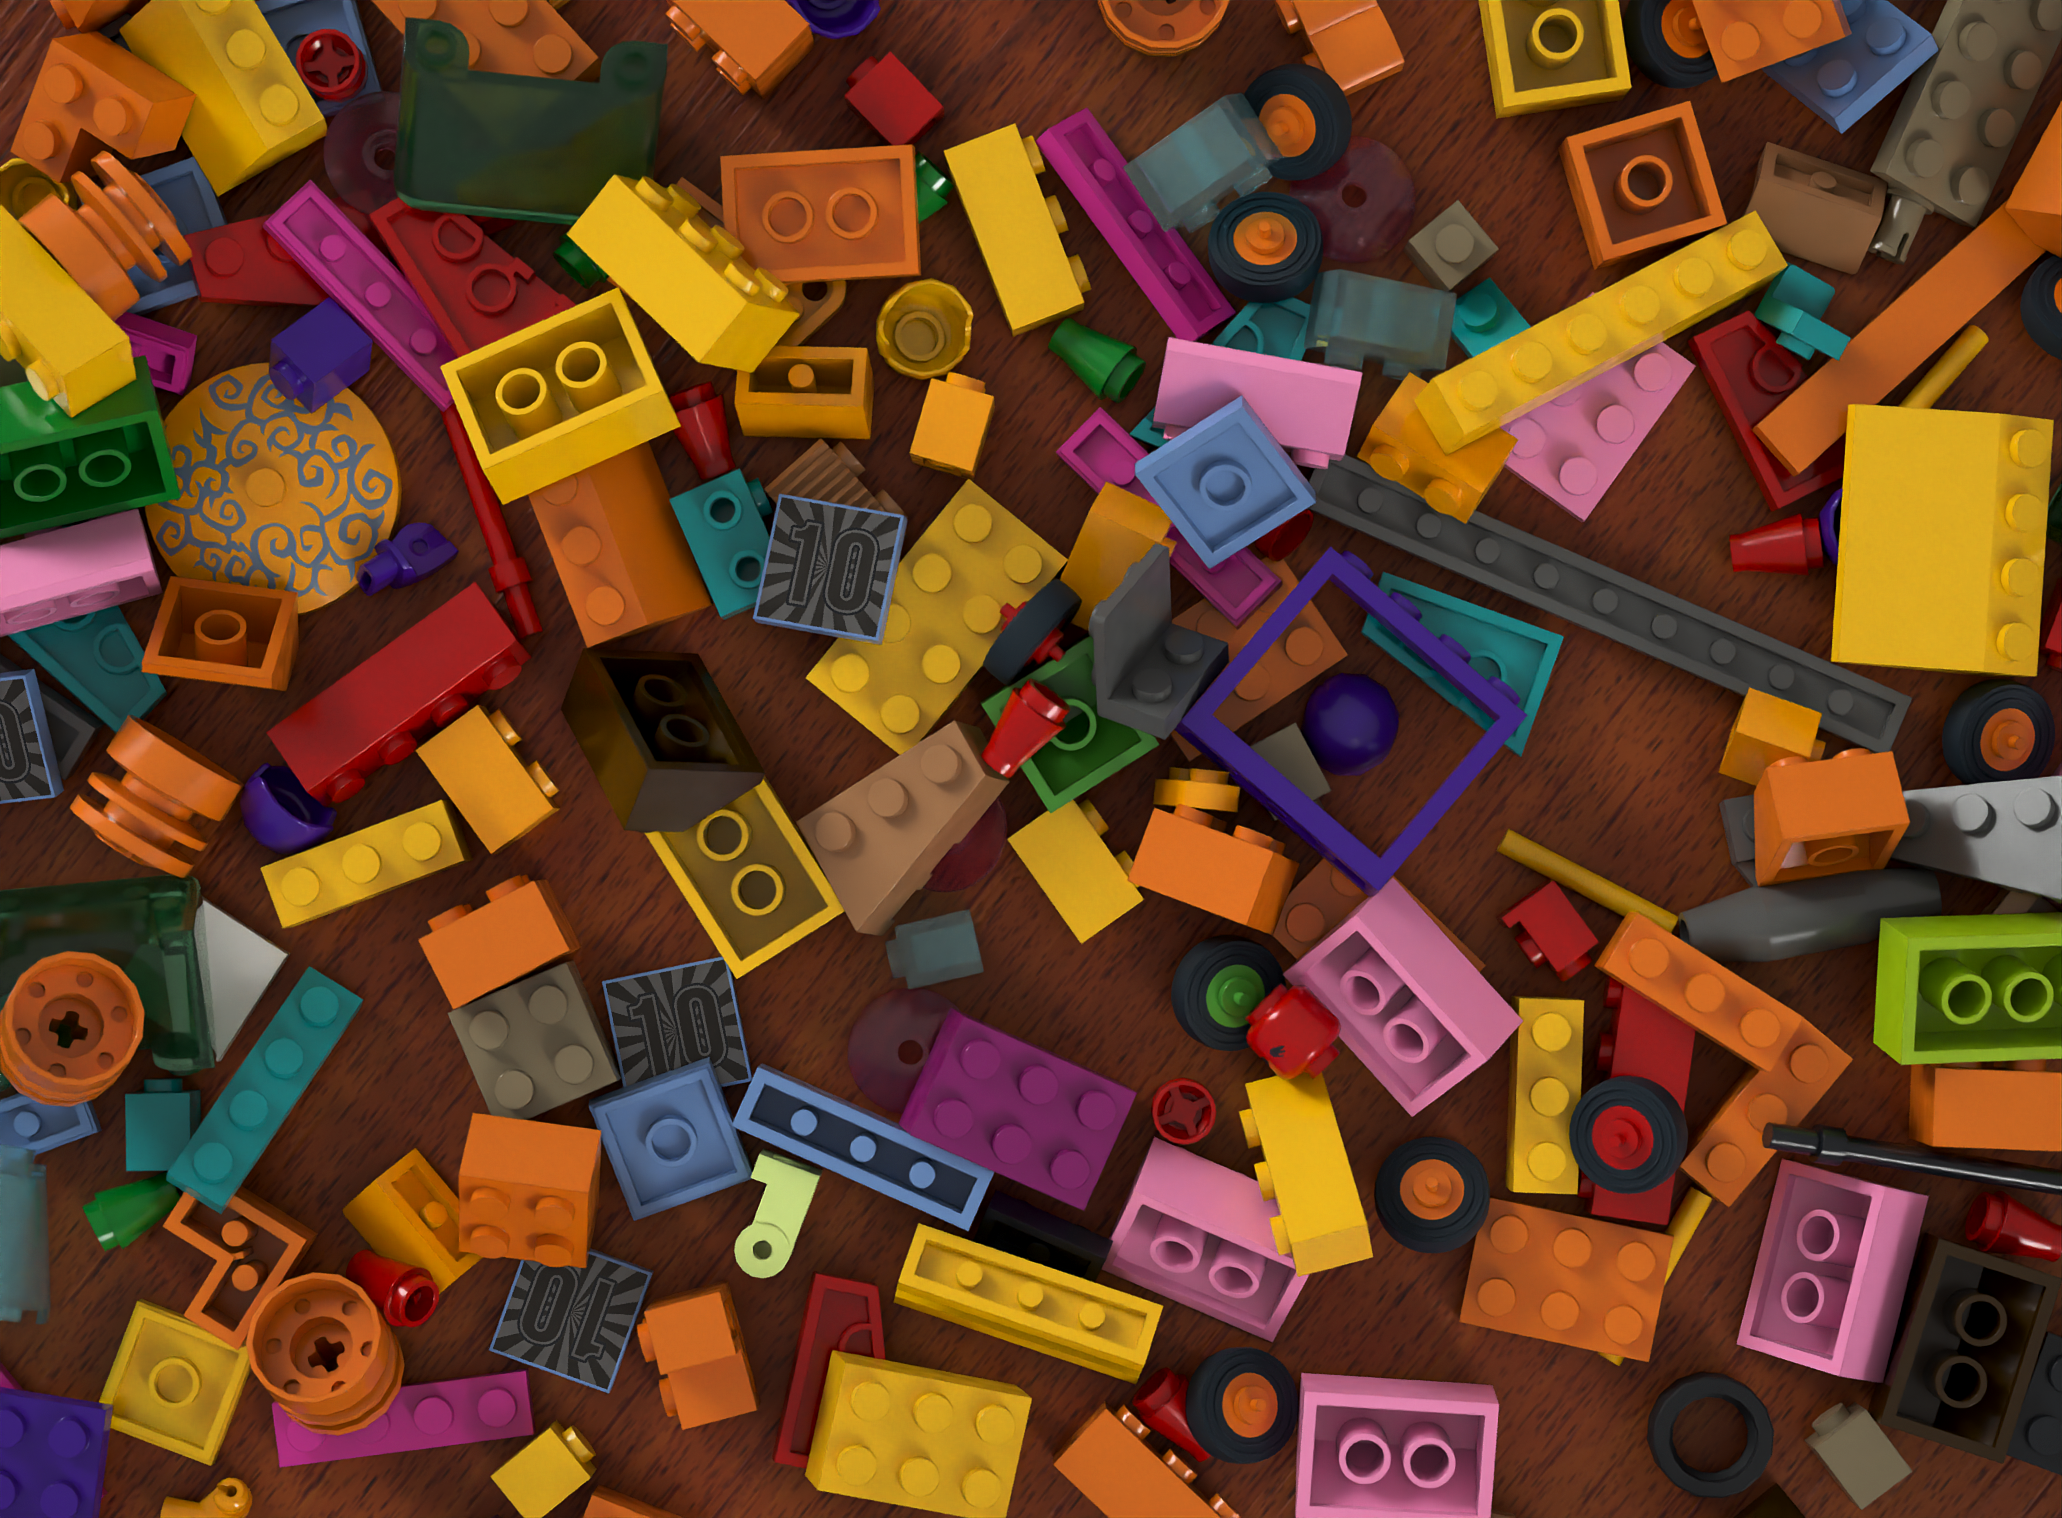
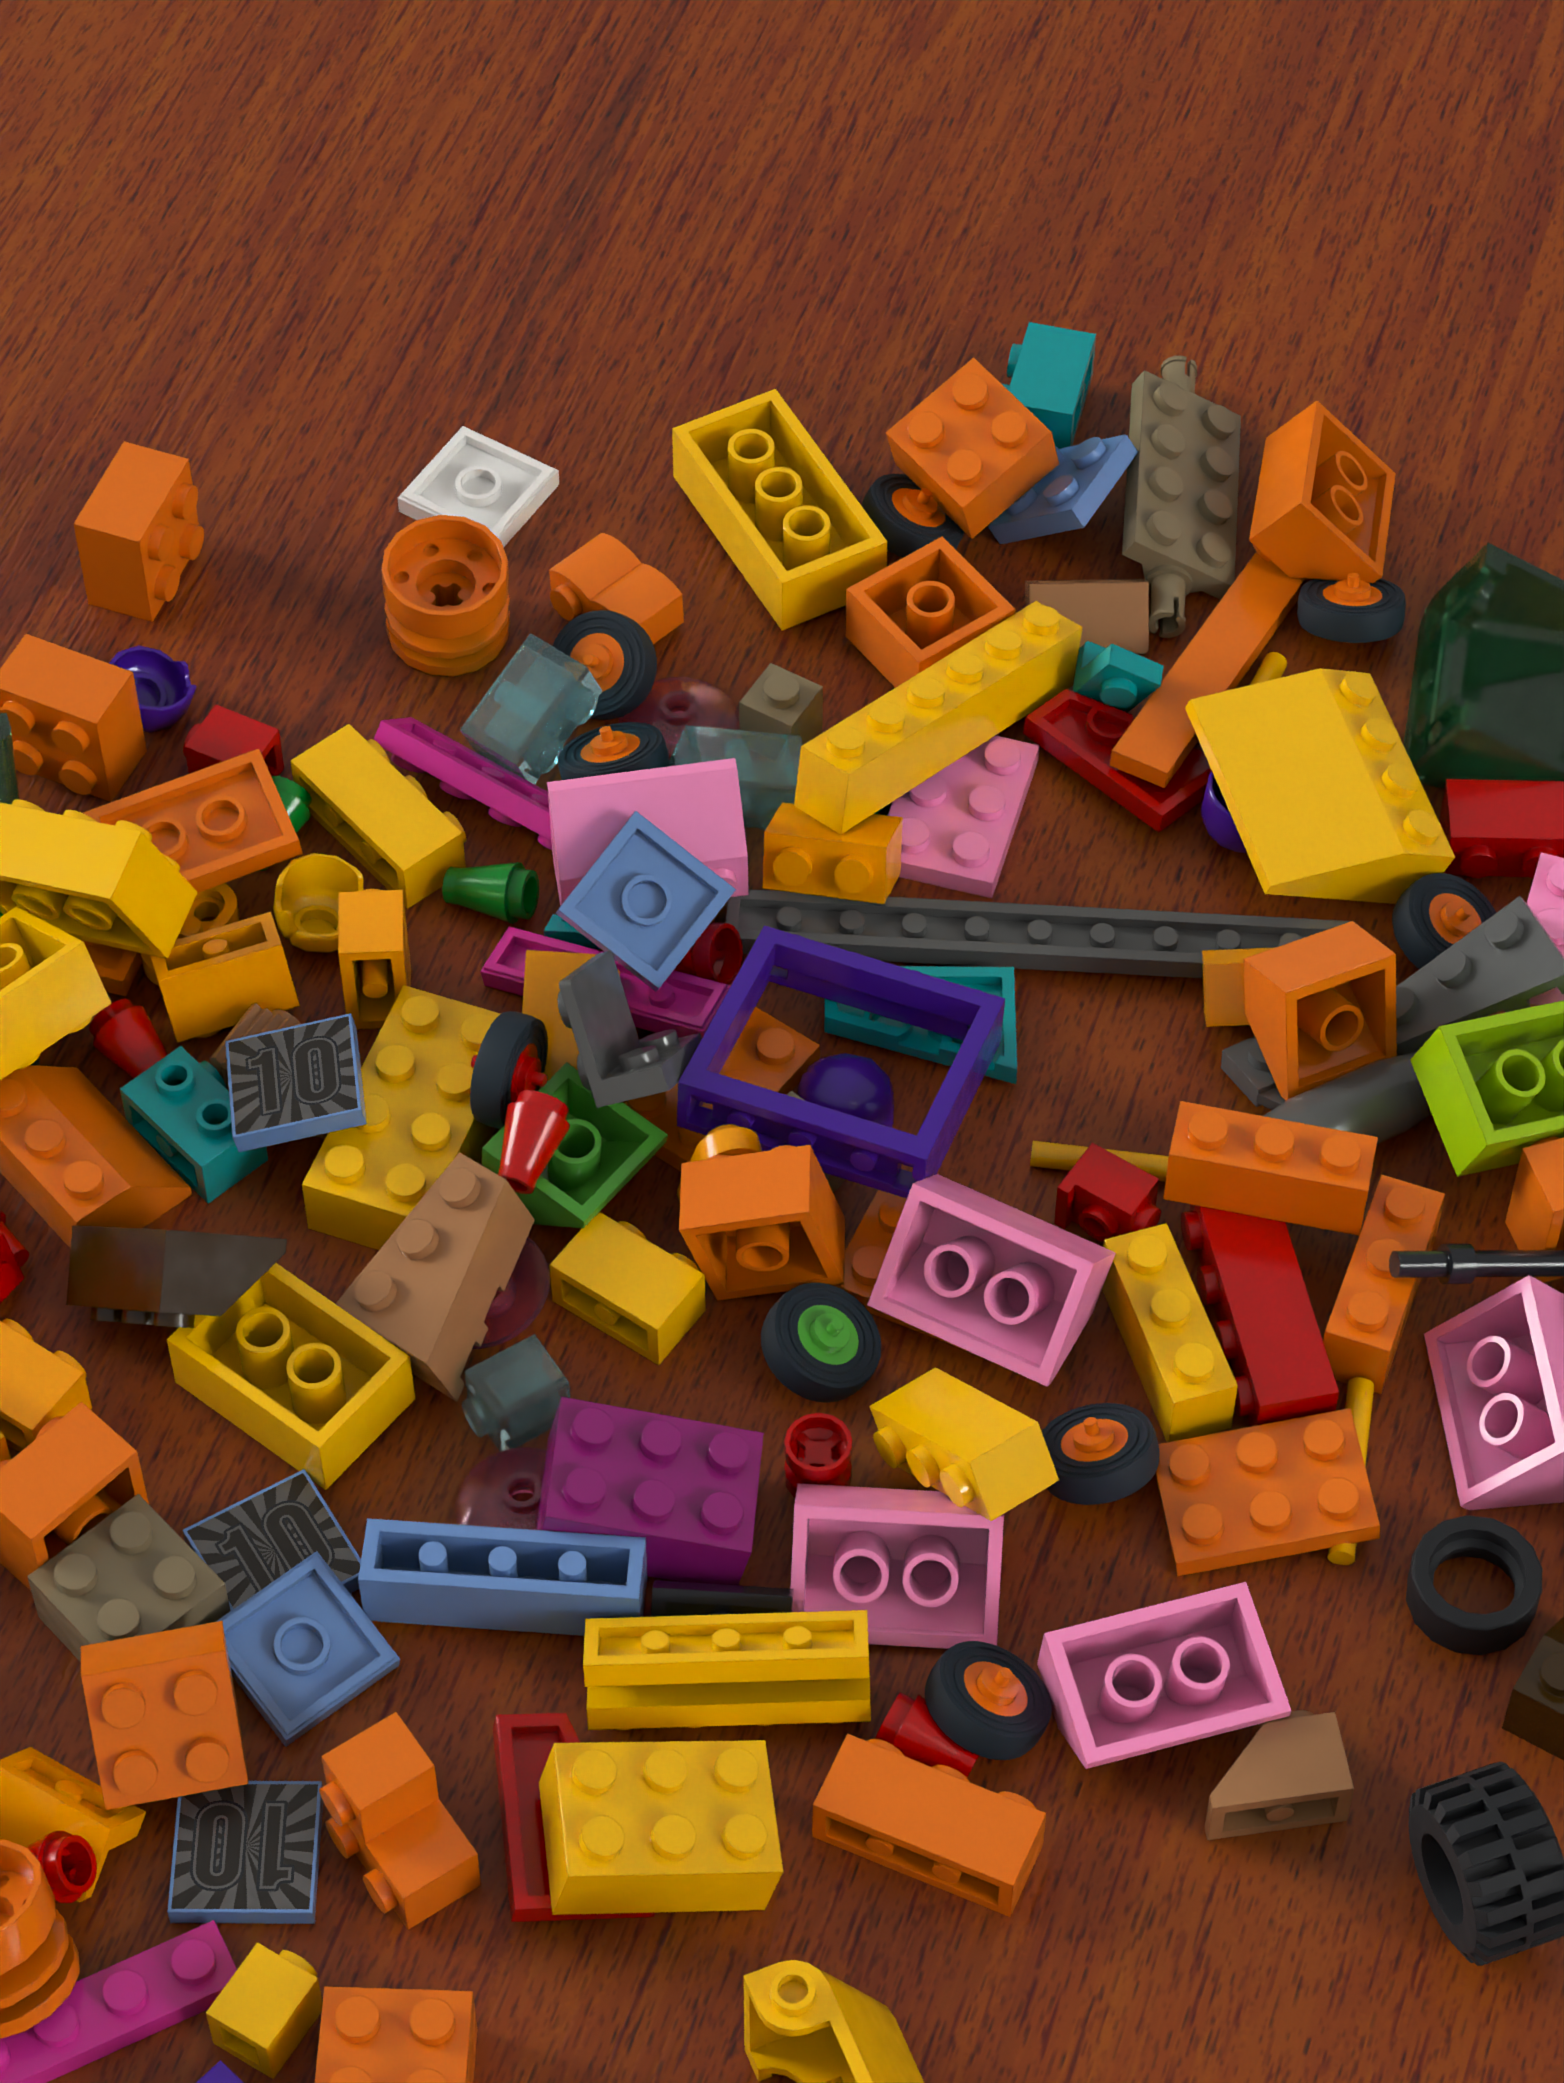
camera: 20 degrees left, 35 degrees down
(772, 1235) = (440, 1661): yellowish green leg -> none
(1293, 1032) = (897, 1335): red head -> none
(1628, 1134) = (1261, 1306): black wheel -> none
(1779, 547) = (1180, 851): red cone -> none

